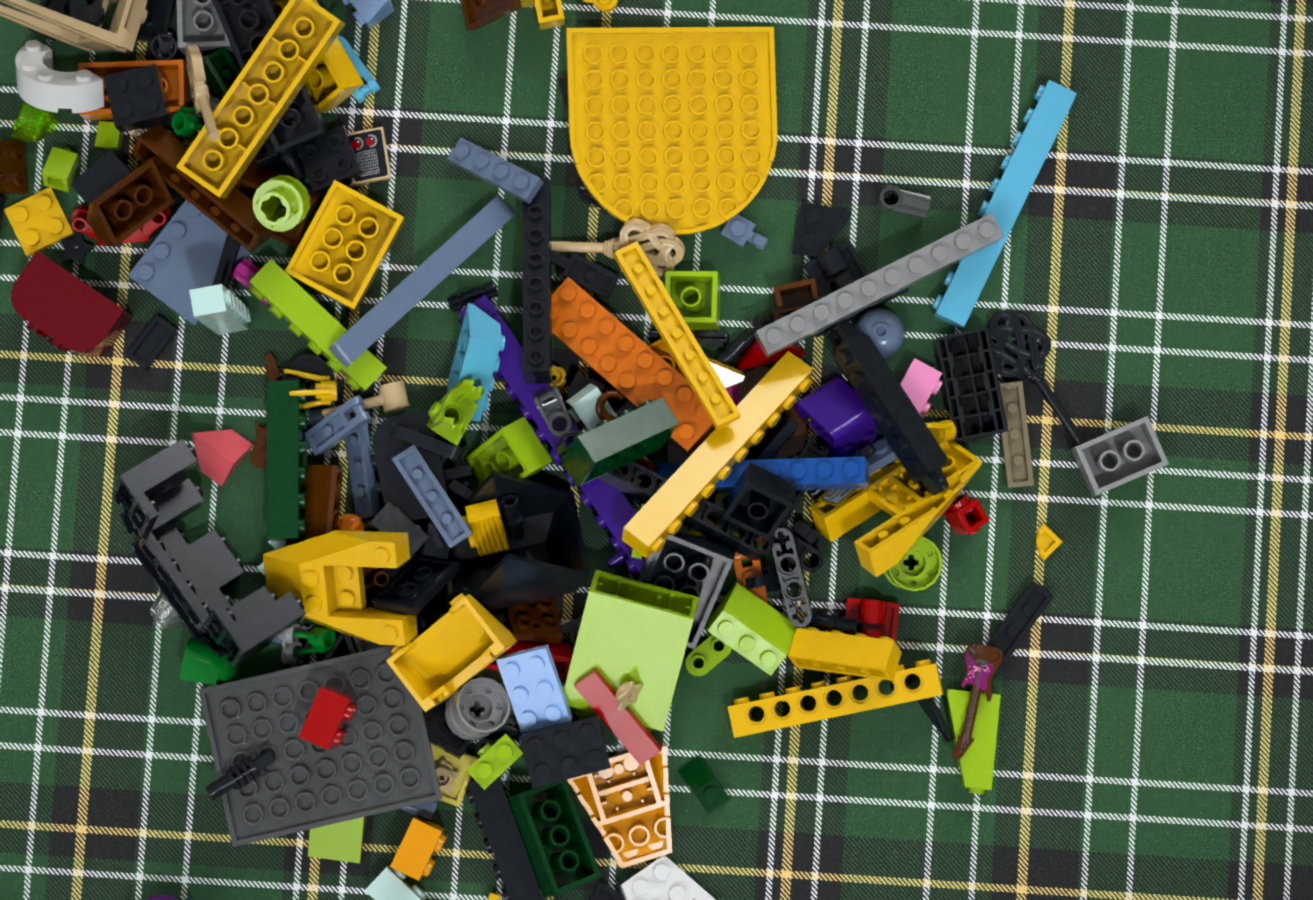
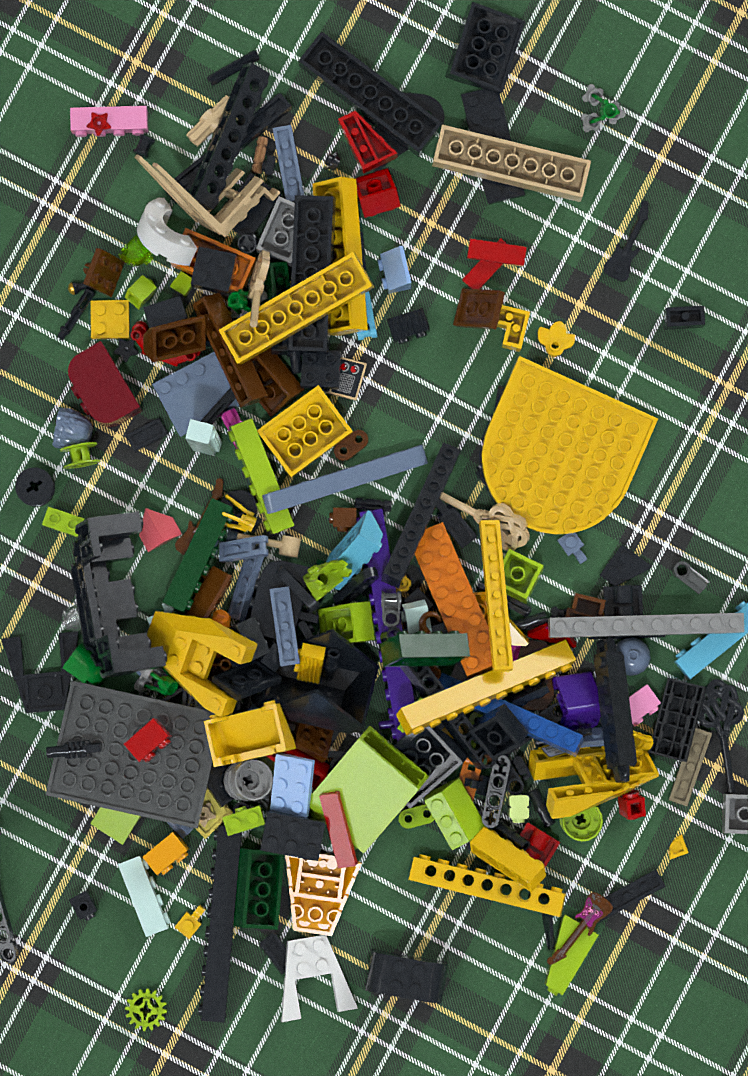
camera: 25 degrees right, 0 degrees up
(27, 473) = (35, 498): none -> black piece
(54, 379) = (71, 428): none -> sand blue hair
(79, 406) = (80, 455): none -> lime piece
(93, 499) = (61, 521): none -> lime brick
(170, 719) = (43, 690): none -> black wing
(269, 209) = (266, 384): lime piece -> none
(411, 236) = (351, 445): none -> reddish brown plate
(412, 57) = (408, 325): none -> black brick
(443, 330) = (343, 518): none -> reddish brown brick
(495, 170) = (427, 428): sand blue plate -> none
(498, 405) = (356, 586): none -> black beam
(627, 694) = (351, 818): tan plate -> none
(703, 784) = (373, 900): dark green slope -> none
(788, 858) = (406, 976): none -> black brick
(827, 585) = (518, 808): none -> yellowish green brick
(856, 572) = (540, 807): none -> black pin

